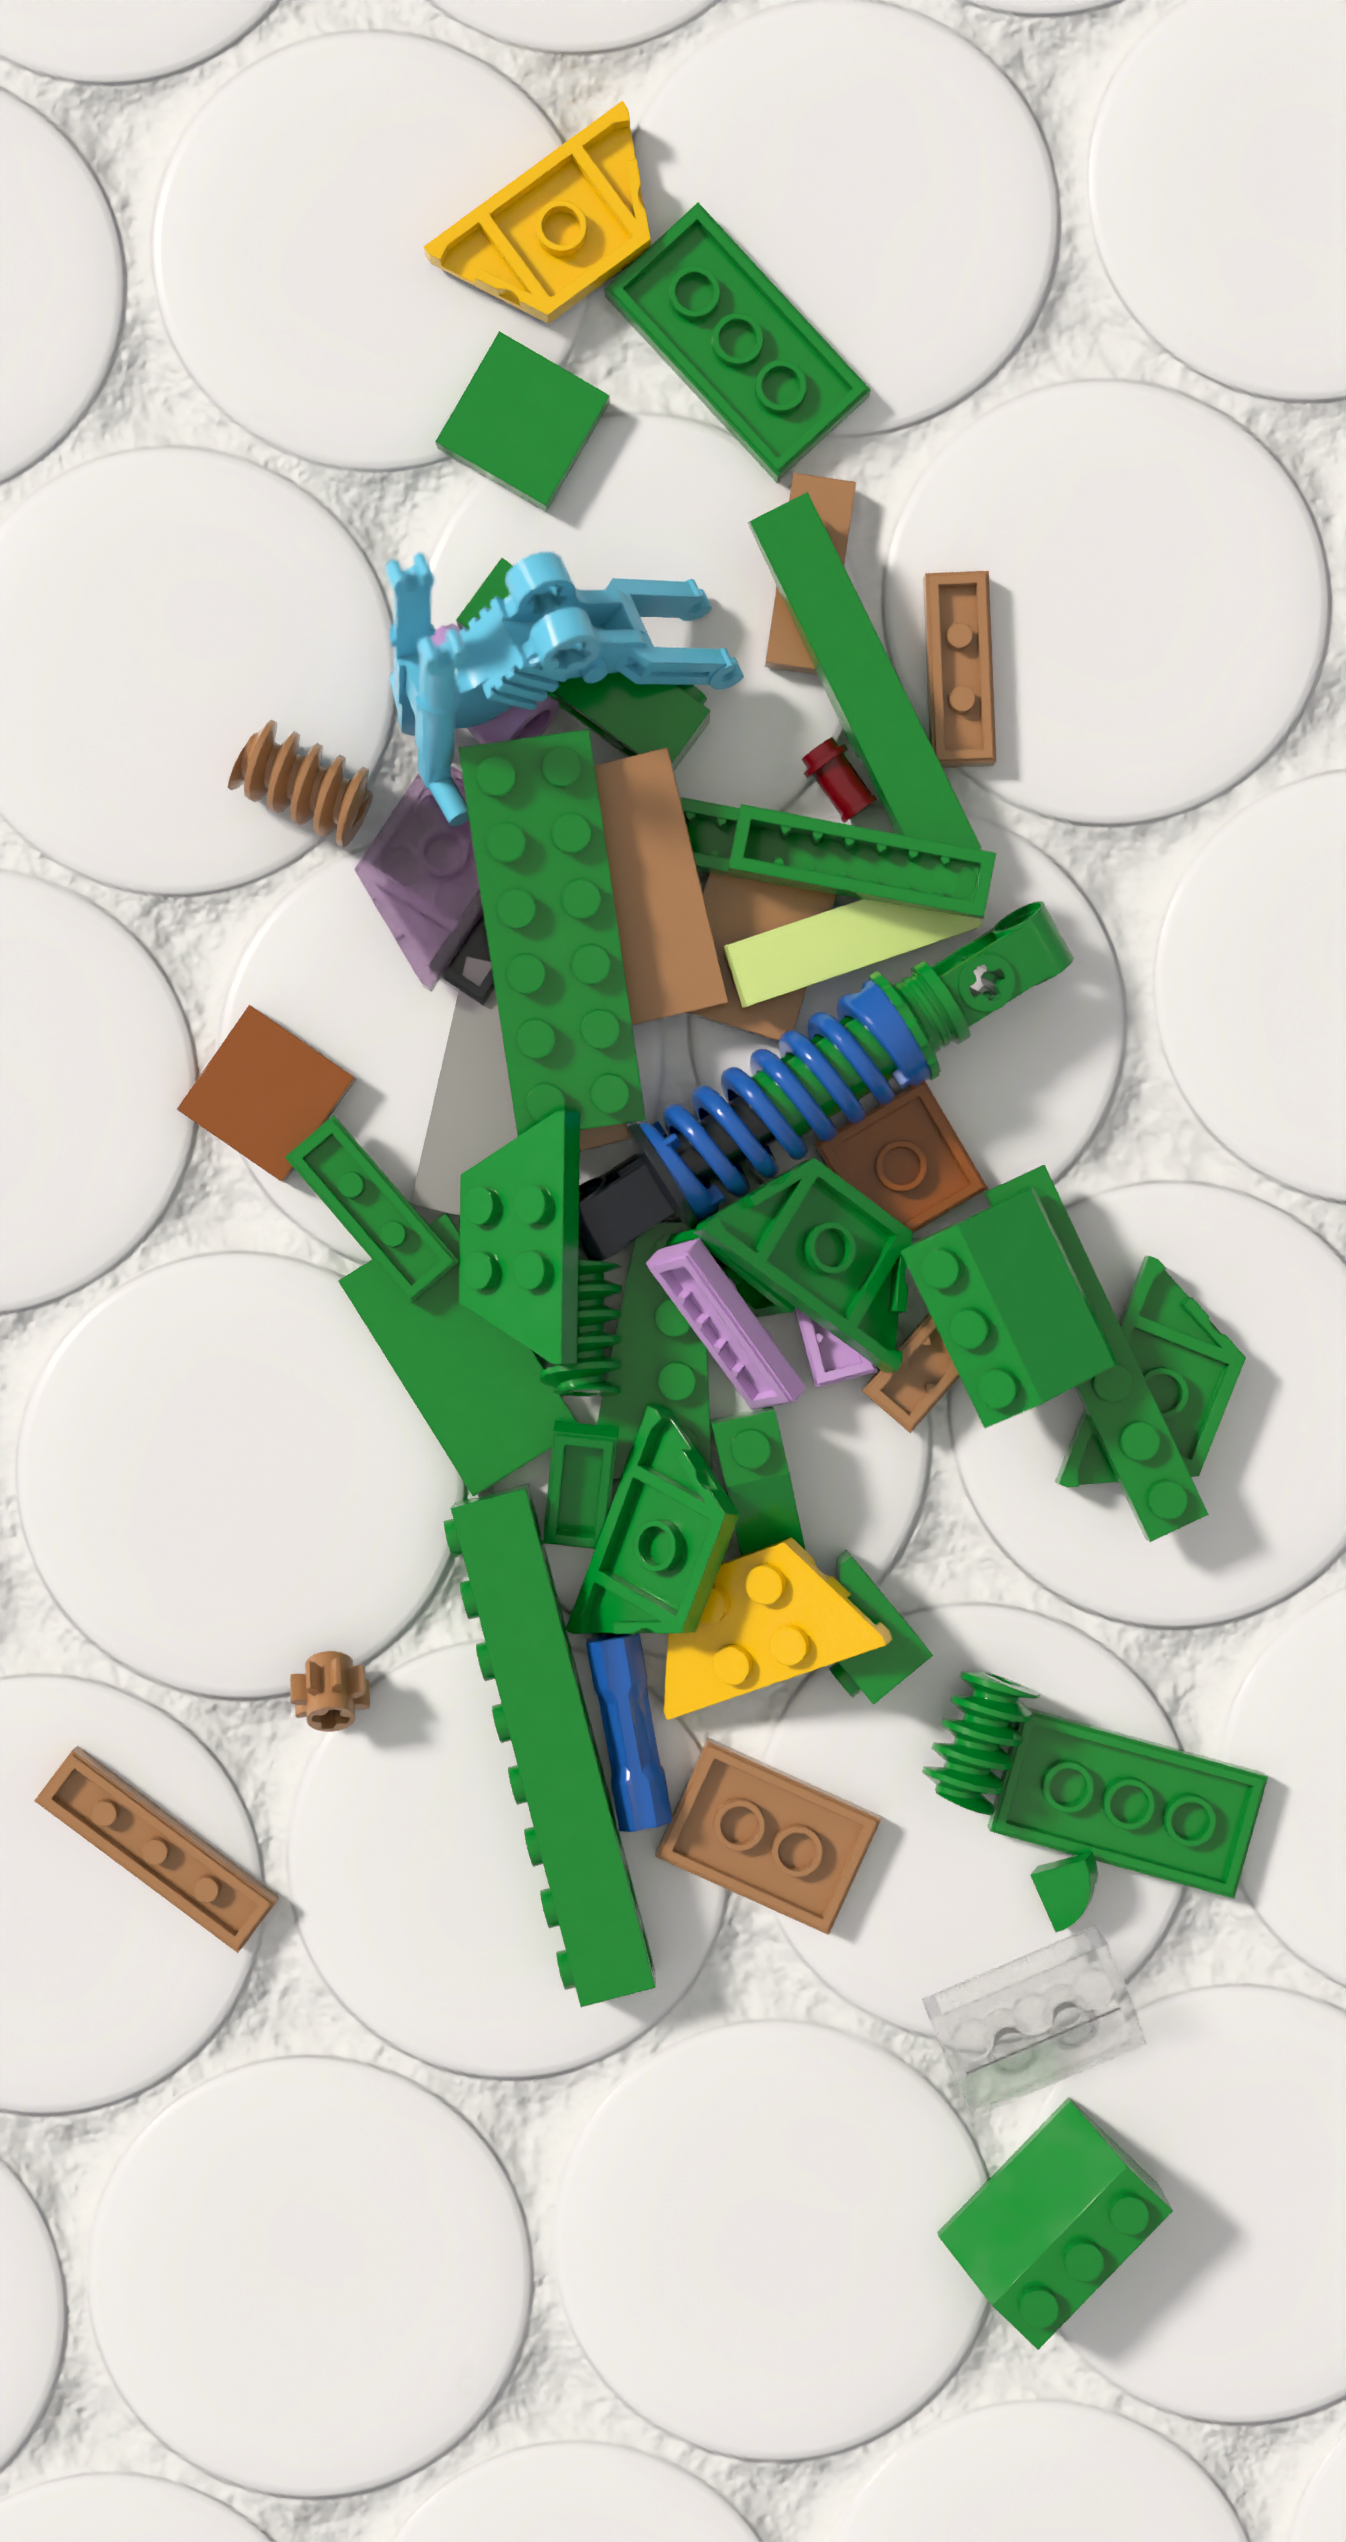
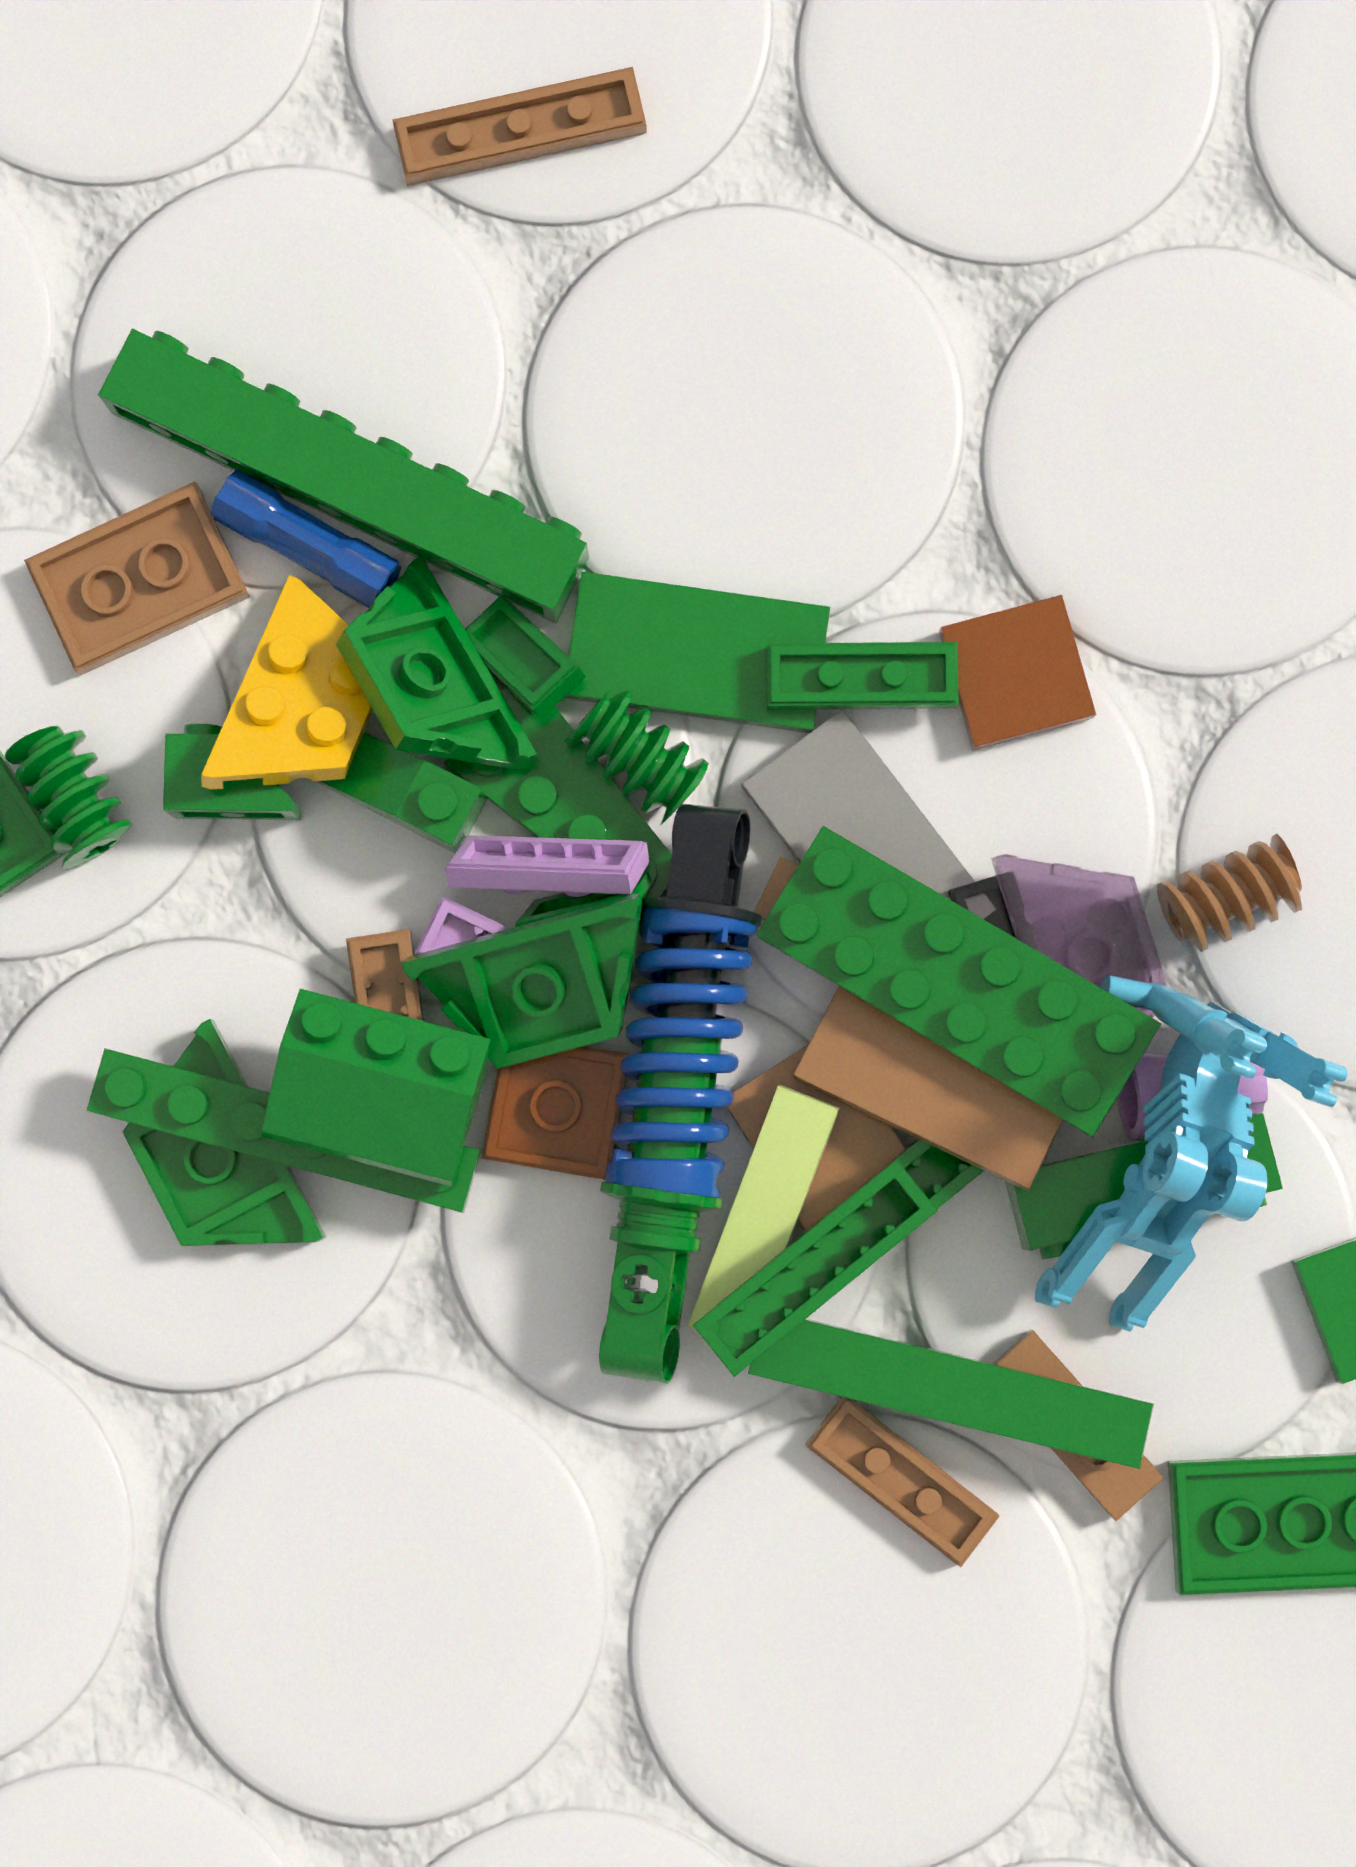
camera: 130 degrees right, 5 degrees down
(329, 1691) = (527, 343): medium nougat gear -> none
(524, 1238) = (742, 765): green wing -> none
(838, 779) = (895, 1310): dark red pin -> none

